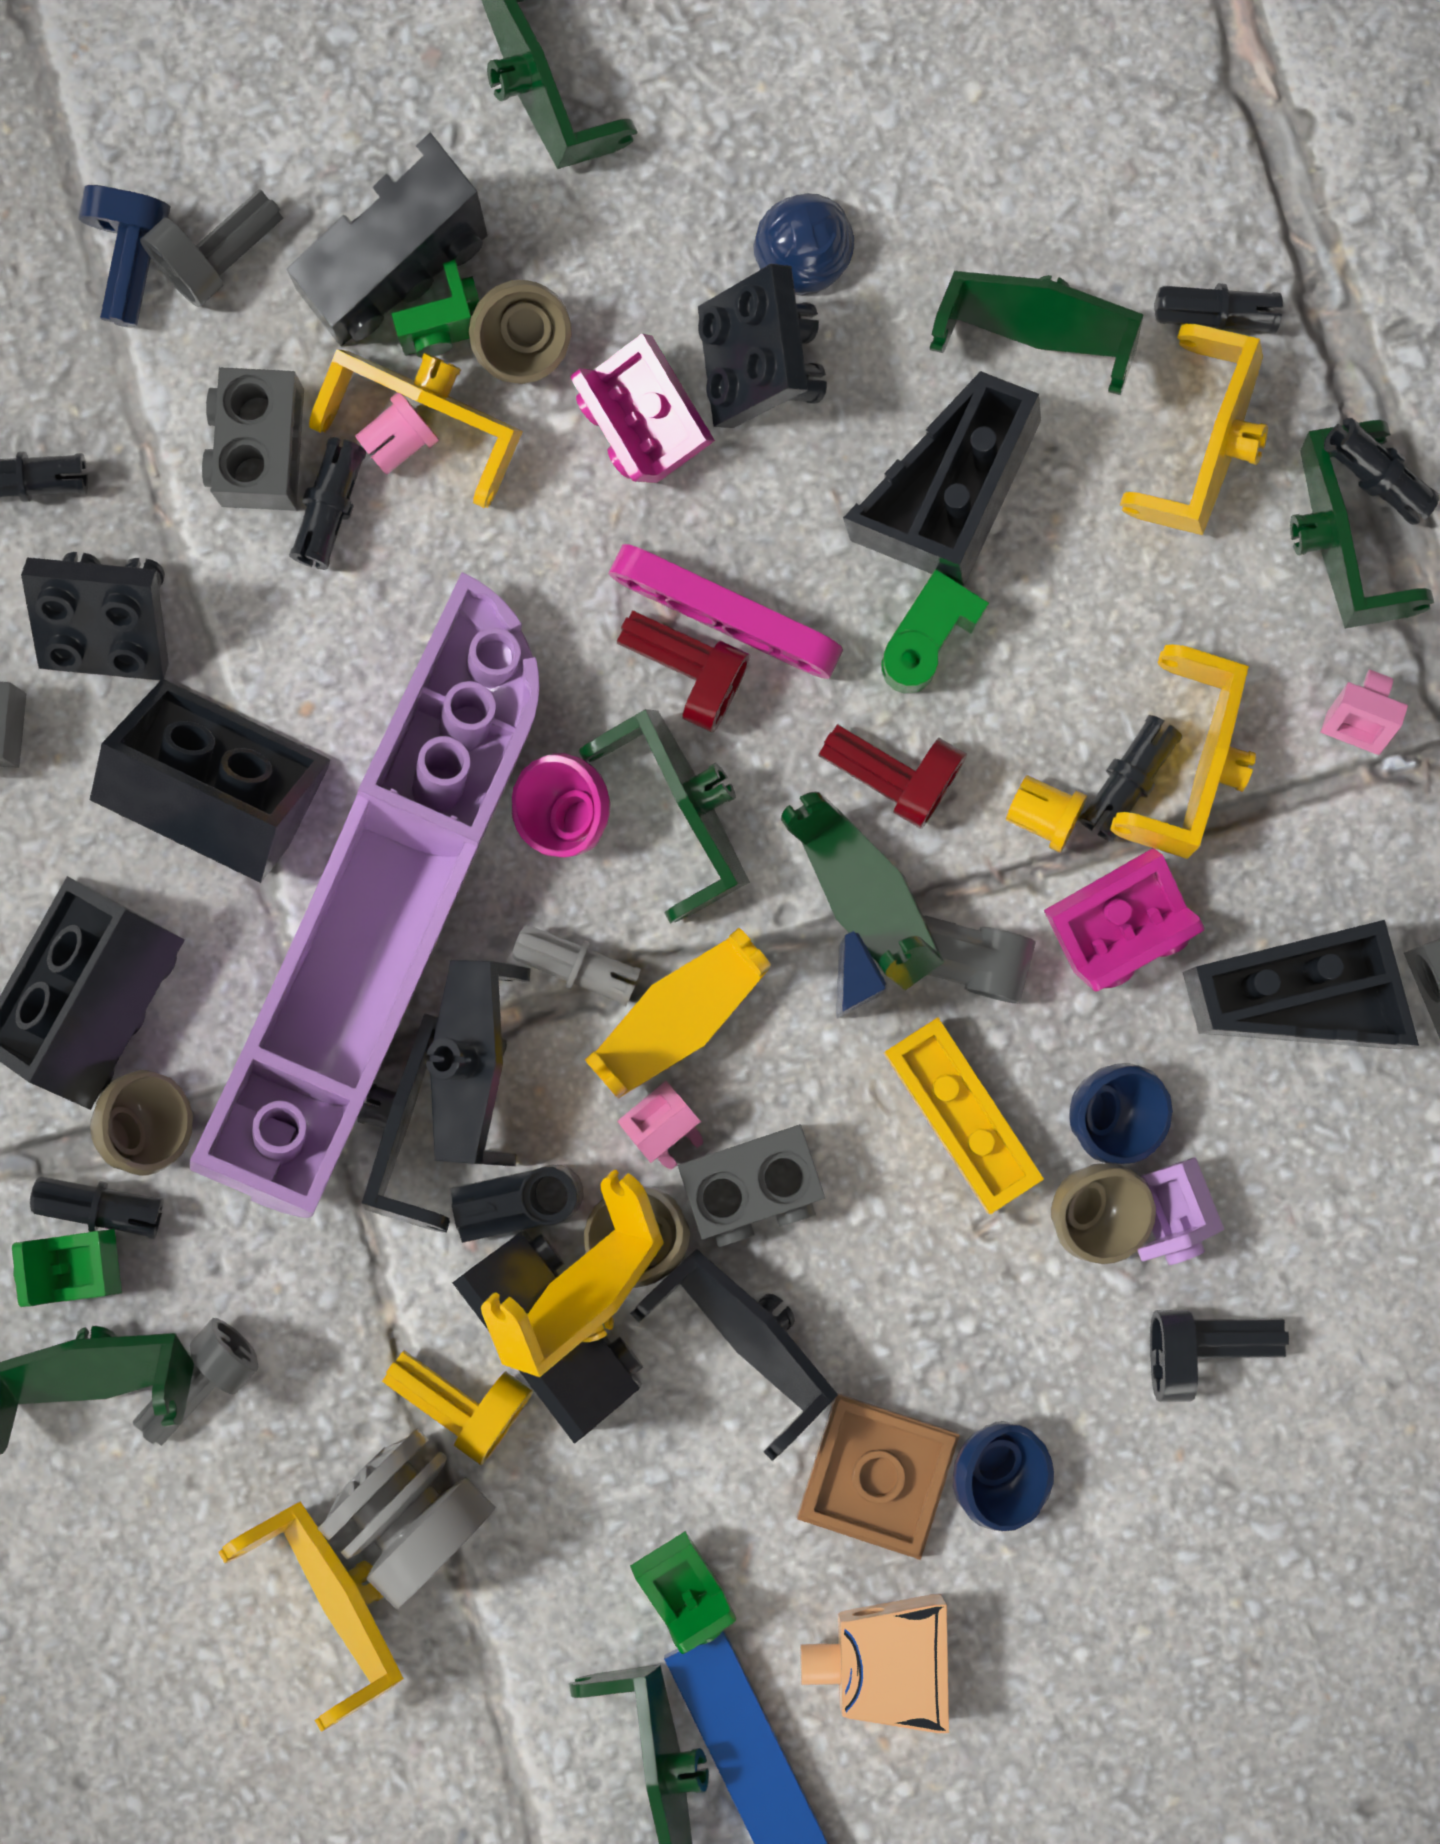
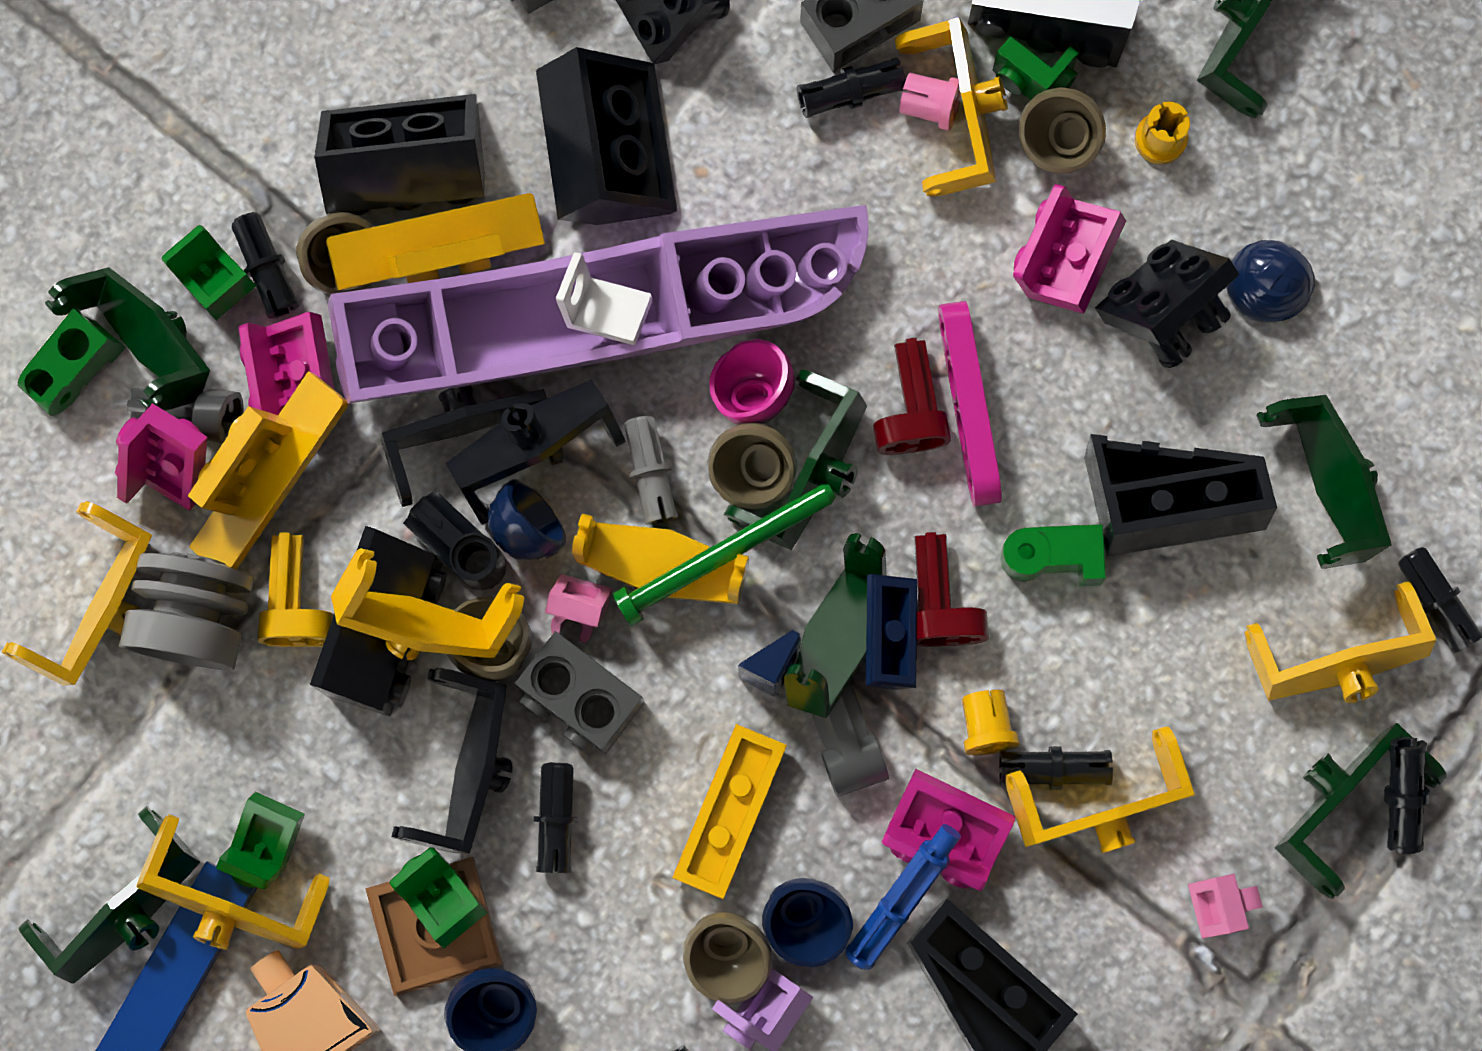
camera: 60 degrees right, 5 degrees down
(59, 1470) = (68, 362): none -> green leg
(200, 1020) = (435, 241): none -> yellow bracket
(228, 1255) = (281, 356): none -> dark pink bracket
(229, 1436) = (161, 454): none -> dark pink bracket
(311, 1348) = (260, 468): none -> yellow bracket
(388, 898) = (600, 305): none -> white bracket
(547, 1122) = (524, 523): none -> dark blue piece
(602, 247) = (1157, 145): none -> yellow bush
(644, 862) = (751, 465): none -> dark tan piece
(701, 1068) = (721, 553): none -> green bar
(736, 1683) = (221, 914): none -> yellow piece
(855, 1288) = (555, 817): none -> black axle
(859, 1453) = (438, 896): none -> green bracket
(900, 841) = (891, 632): none -> dark blue slope
(1160, 1007) = (902, 898): none -> blue piece

